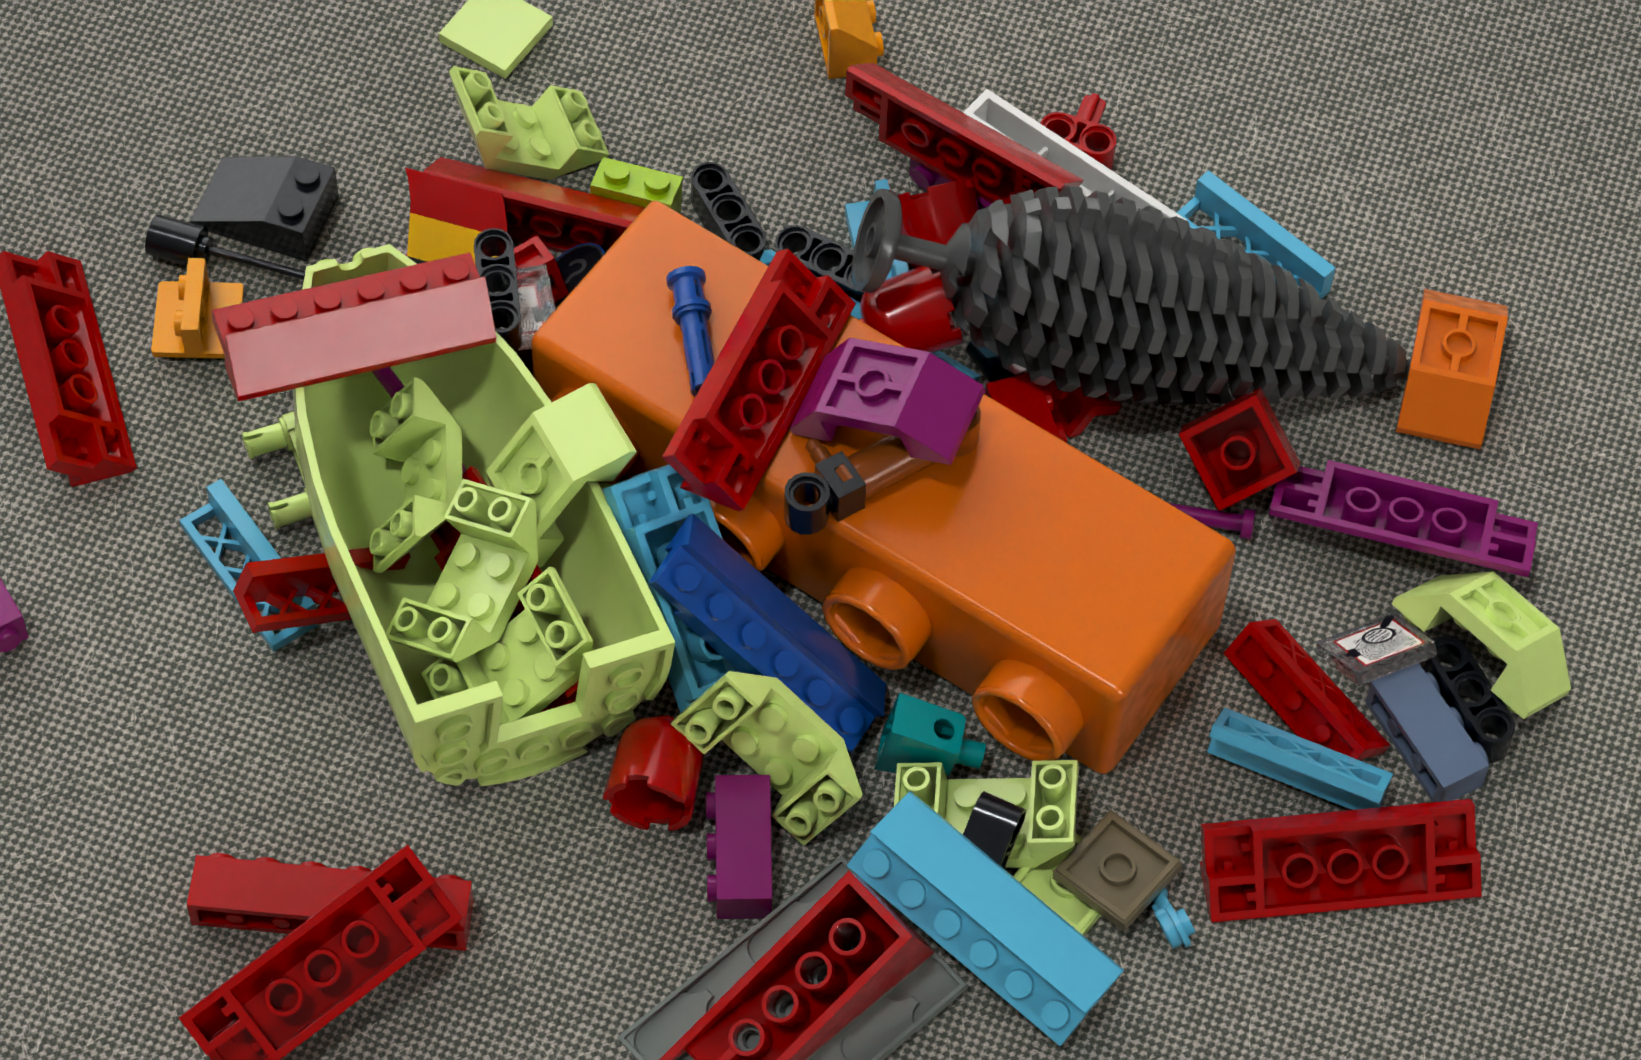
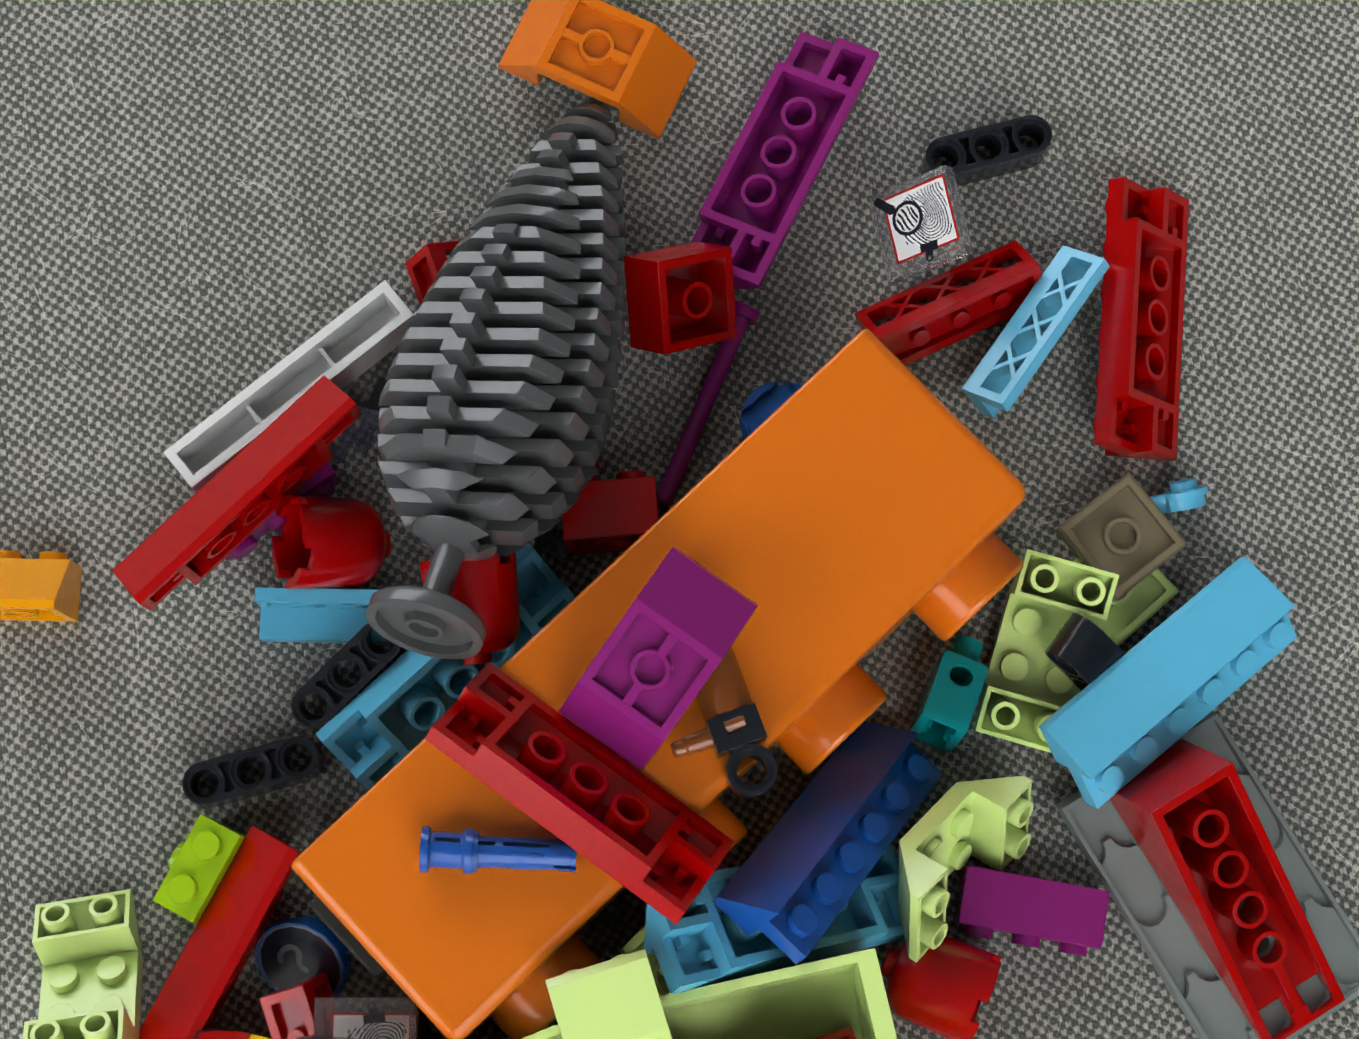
camera: 80 degrees left, 20 degrees up
(1084, 129) = (227, 363): red beam -> none
(1257, 232) = (400, 208): medium azure fence -> none
(1428, 733) = (1024, 198): sand blue brick -> none
(1506, 625) = (917, 104): yellowish green slope -> none

